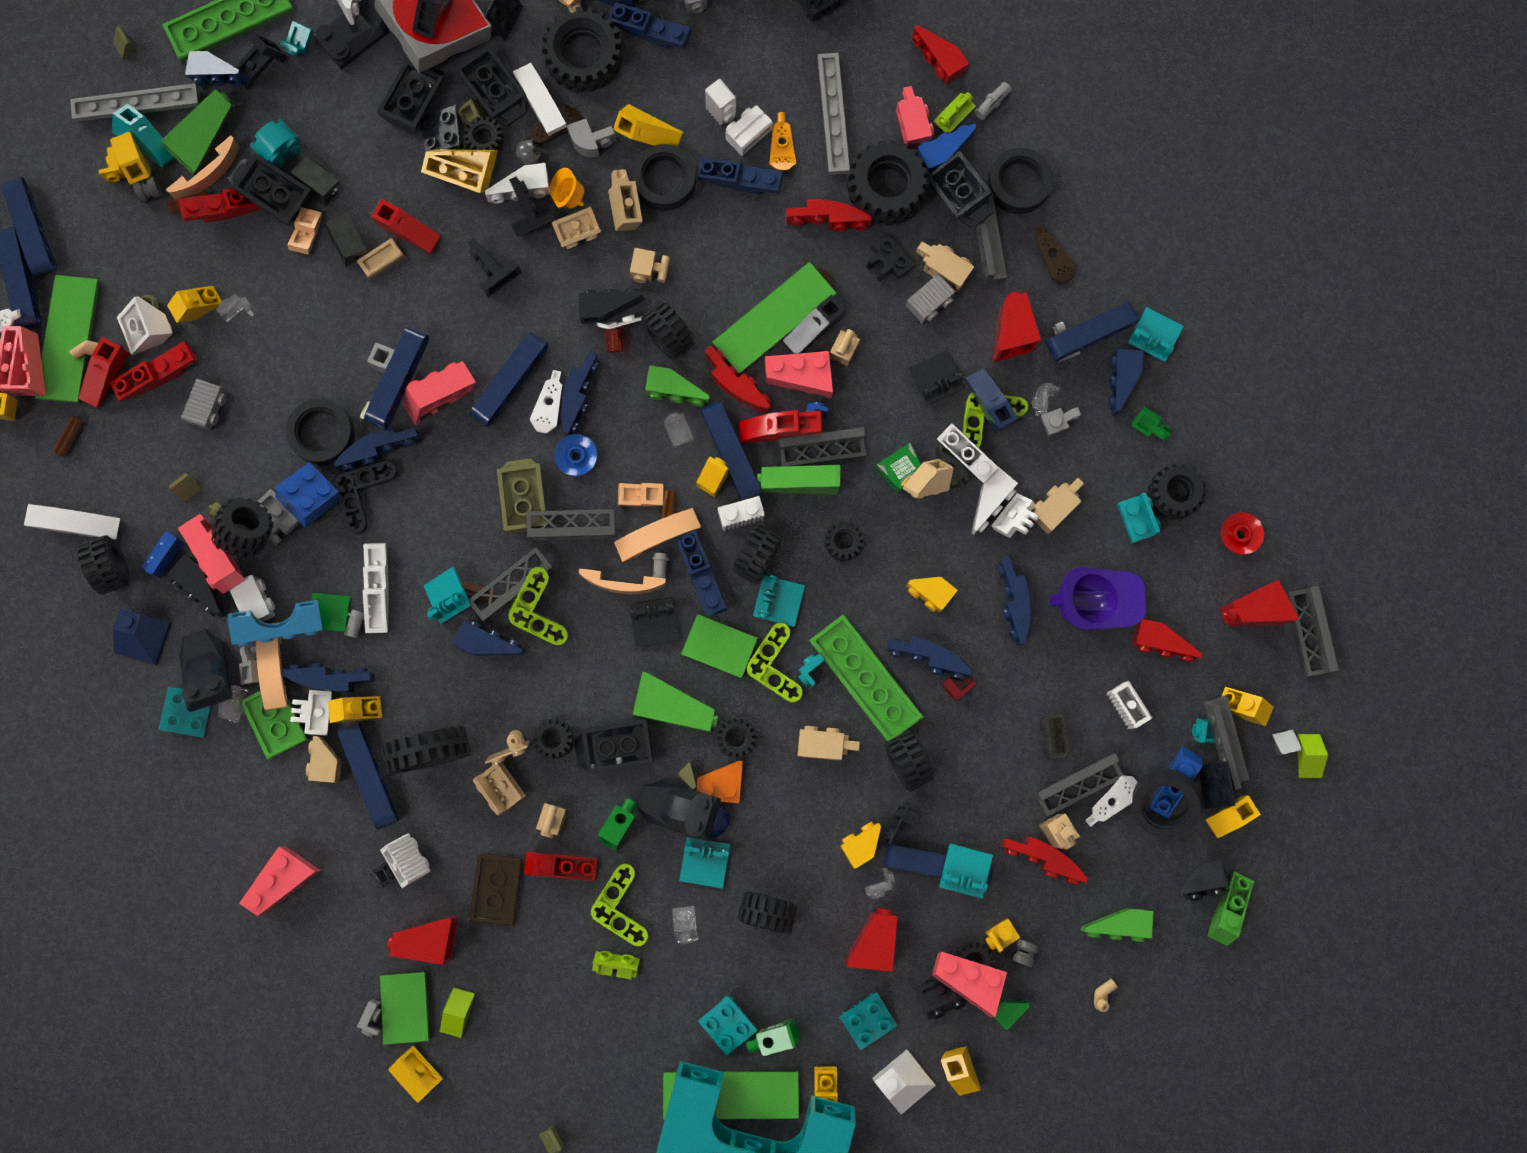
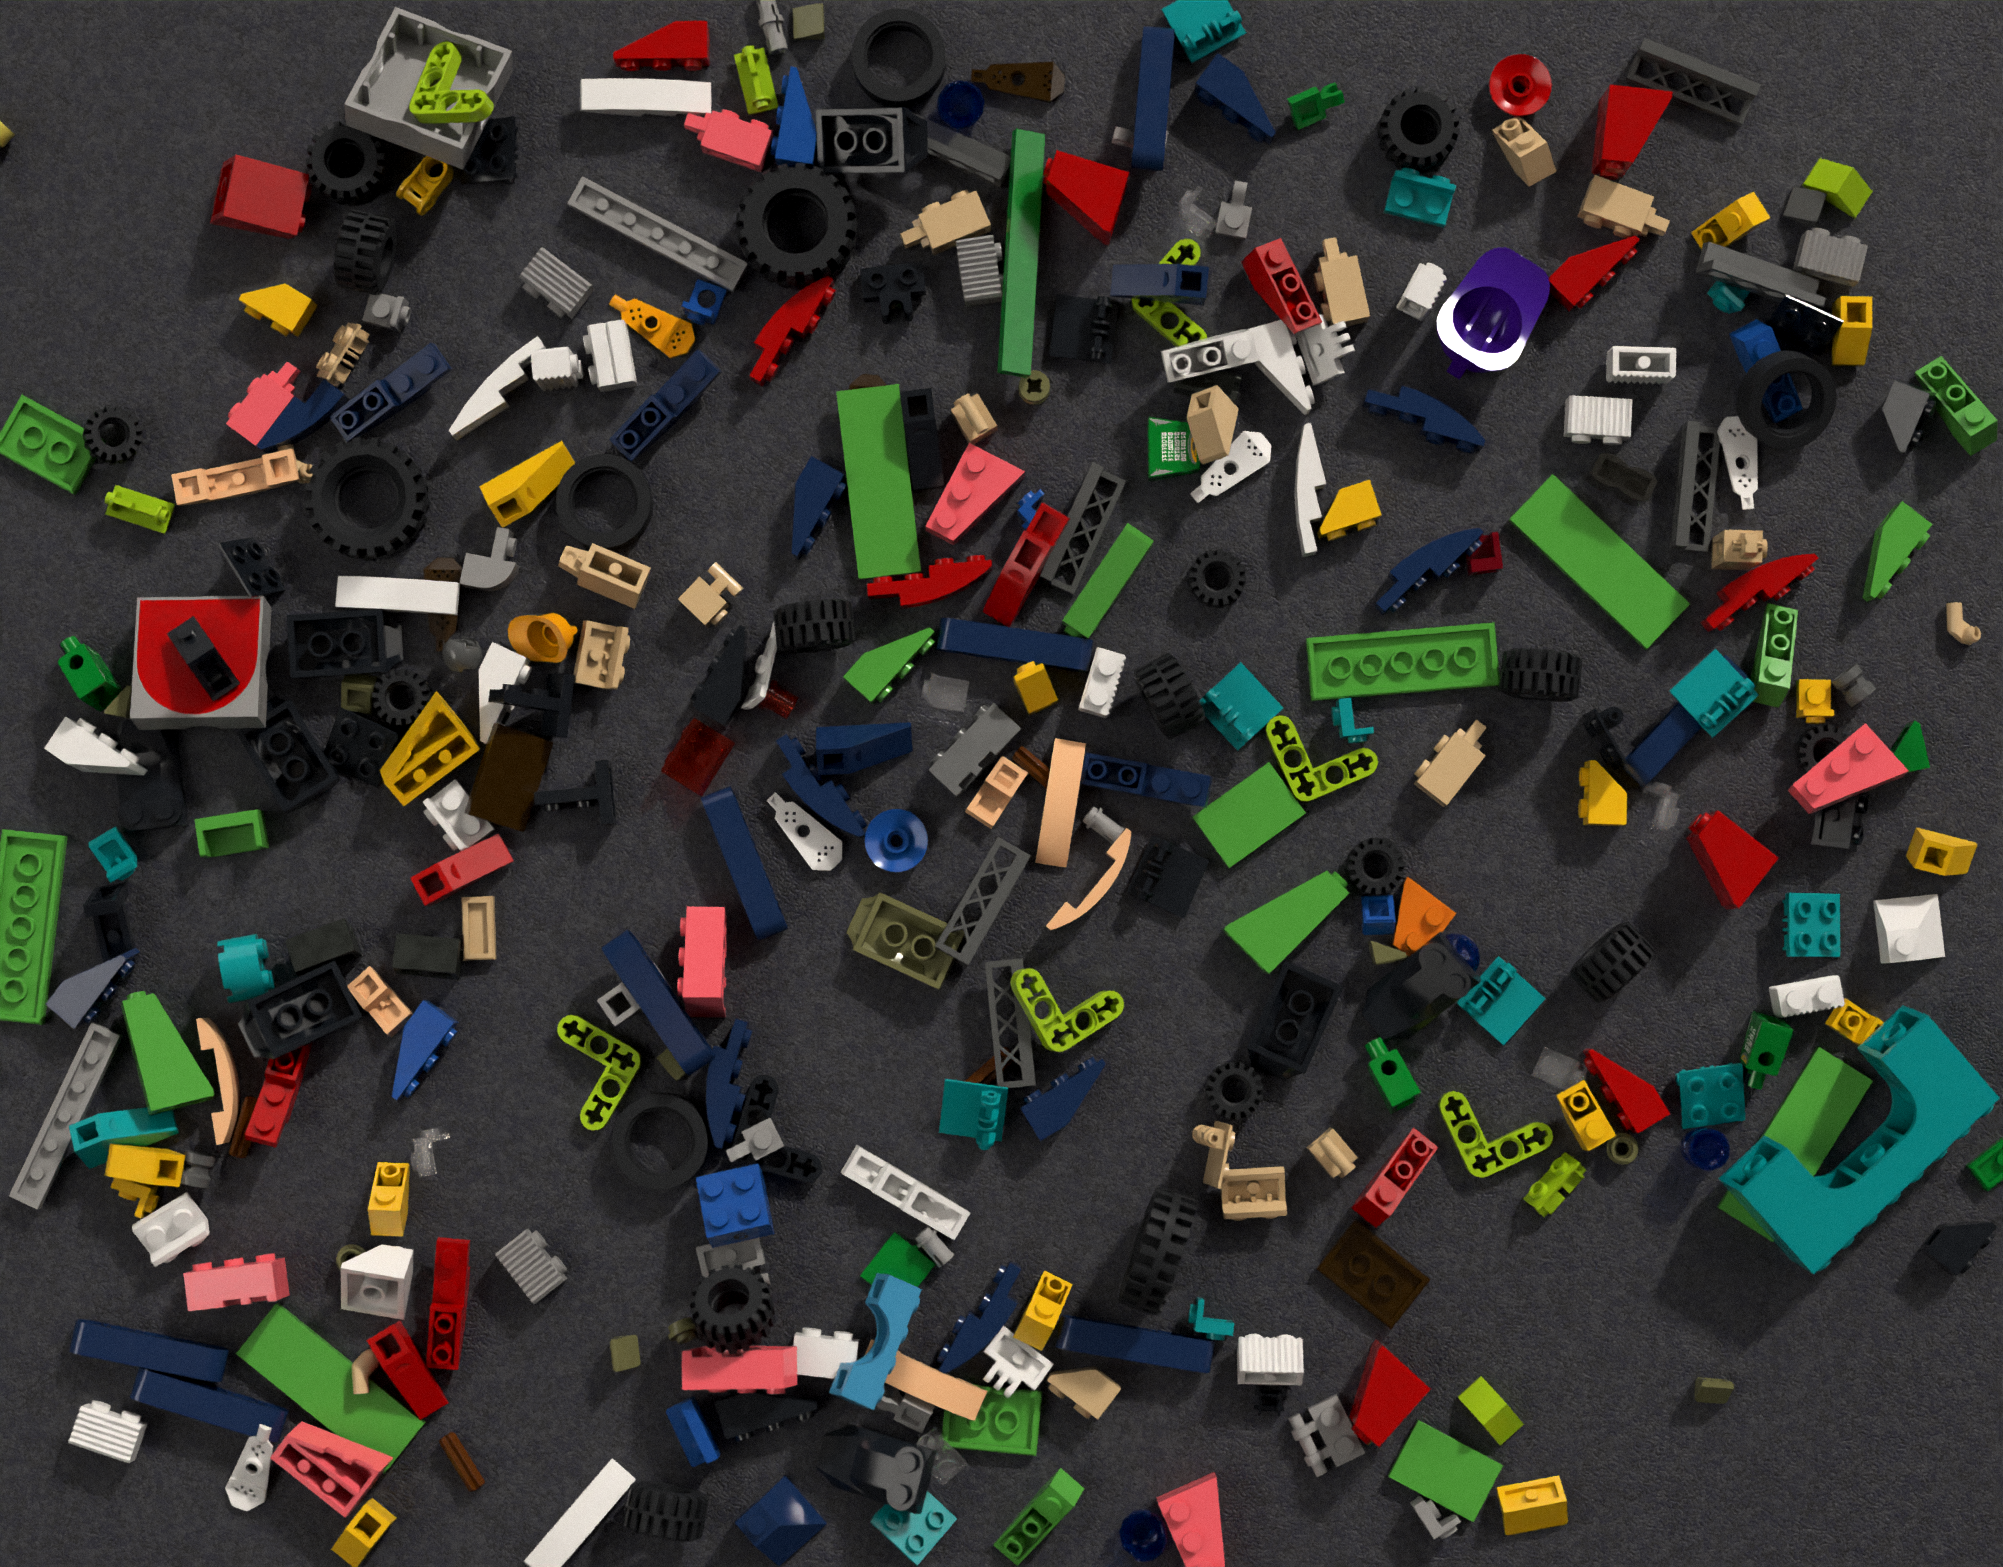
camera: 50 degrees left, 5 degrees up
(95, 250) = (236, 1282): none -> coral wedge
(105, 197) = (172, 1229): none -> white bracket
(232, 784) = (1039, 1516): none -> bright green slope
(256, 851) = (1143, 1535): none -> clear blue hair
(294, 265) = (421, 1040): none -> blue slope
(345, 380) = (612, 1071): none -> lime beam
(349, 93) = (231, 833): none -> bright green panel
(353, 485) = (760, 1140): none -> light grey plate
(392, 921) = (1335, 1431): none -> light grey plate
(405, 814) = (1214, 1328): none -> teal bracket
(436, 207) = (448, 810): none -> white bracket
(474, 218) = (508, 777): none -> dark brown tile
(553, 315) = (697, 756): none -> clear red bracket
(615, 399) = (860, 746): none -> dark blue slope
(654, 465) = (973, 750): none -> dark grey wedge
(662, 998) = (1629, 1155): none -> olive plate
(666, 955) = (1584, 1116): none -> yellow slope
(683, 79) = (489, 398): none -> white slope
(692, 1041) = (1705, 1148): none -> clear blue wheel
(697, 978) = (1635, 1098): none -> red slope
(709, 758) = (1378, 915): none -> blue slope
(743, 287) = (813, 496): none -> dark blue slope
(769, 77) = (556, 283): none -> light grey brick
(804, 162) = (699, 314): none -> blue bracket
(823, 1044) = (1806, 996): none -> white brick
(884, 375) = (1030, 392): none -> olive wheel
(905, 58) = (645, 96): none -> white slope
(922, 513) = (1242, 458): none -> white piece
(935, 557) = (1308, 478): none -> white slope
(954, 315) = (1021, 253): none -> green tile
(999, 756) = (1599, 562): none -> bright green tile
(1007, 121) = (809, 22): none -> olive slope
(1012, 894) = (1774, 655): none -> bright green slope
(1016, 229) = (960, 104): none -> clear blue hair
(1035, 469) = (1281, 286): none -> red slope
(1081, 701) = (1597, 419): none -> white brick
(1086, 551) = (1422, 291): none -> white brick
(1207, 560) = (1524, 150): none -> tan slope
(1210, 636) = (1620, 209): none -> tan hinge
(1267, 777) = (1830, 257): none -> light grey brick

